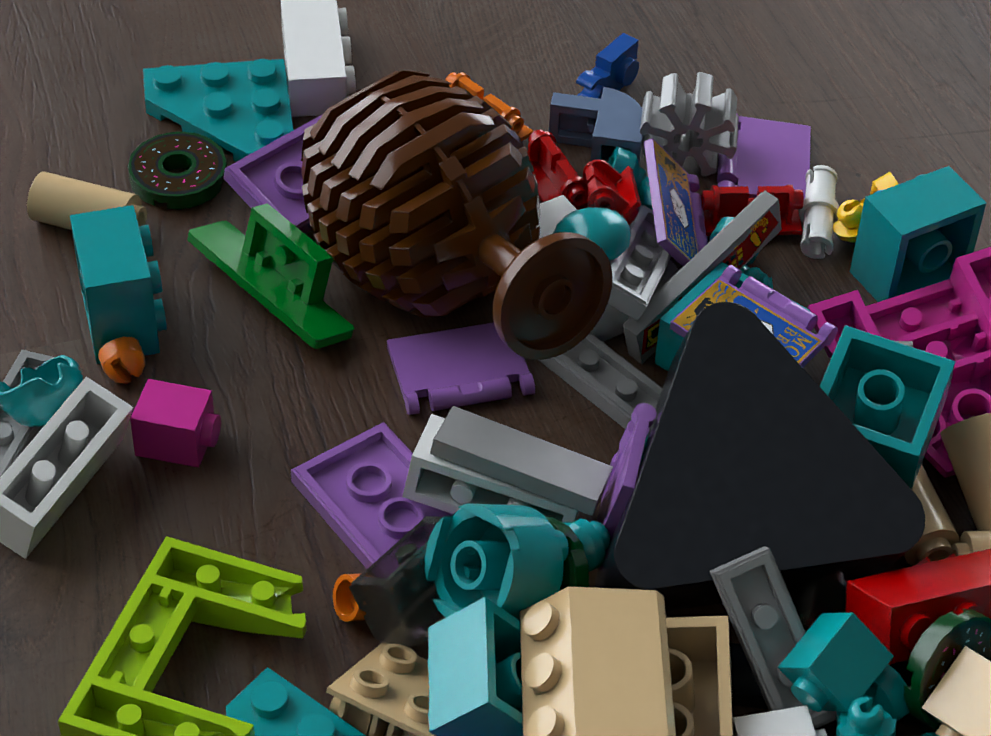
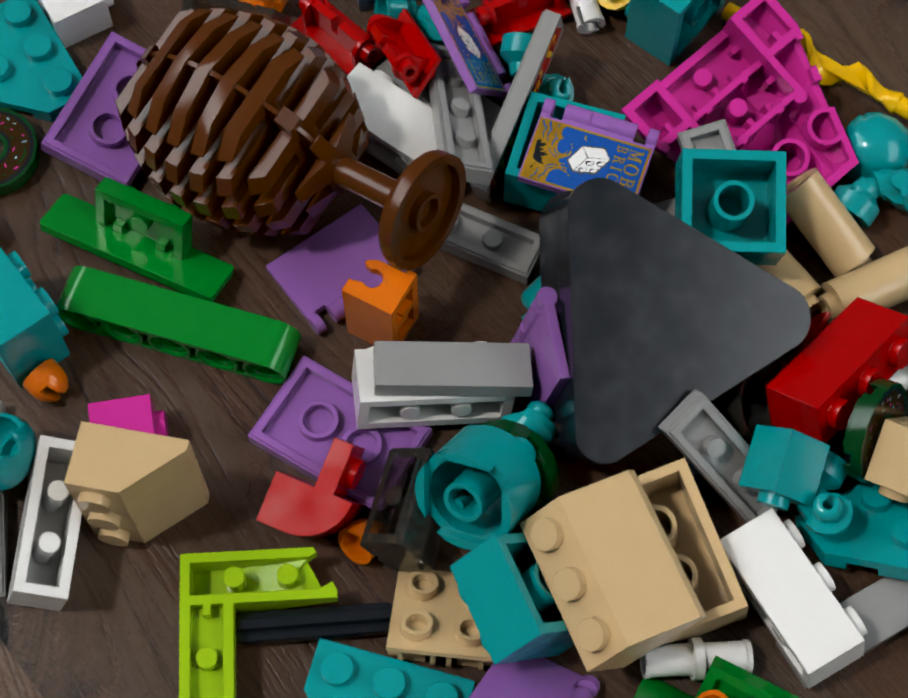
camera: 20 degrees left, 20 degrees up
(153, 446) = (133, 482): none -> tan slope
(263, 652) = (313, 623): none -> black axle
(276, 356) = (178, 324): none -> green beam
(333, 544) = (317, 508): none -> red brick
(483, 384) = (385, 310): none -> orange hinge
(600, 225) = (415, 118): teal hair -> none

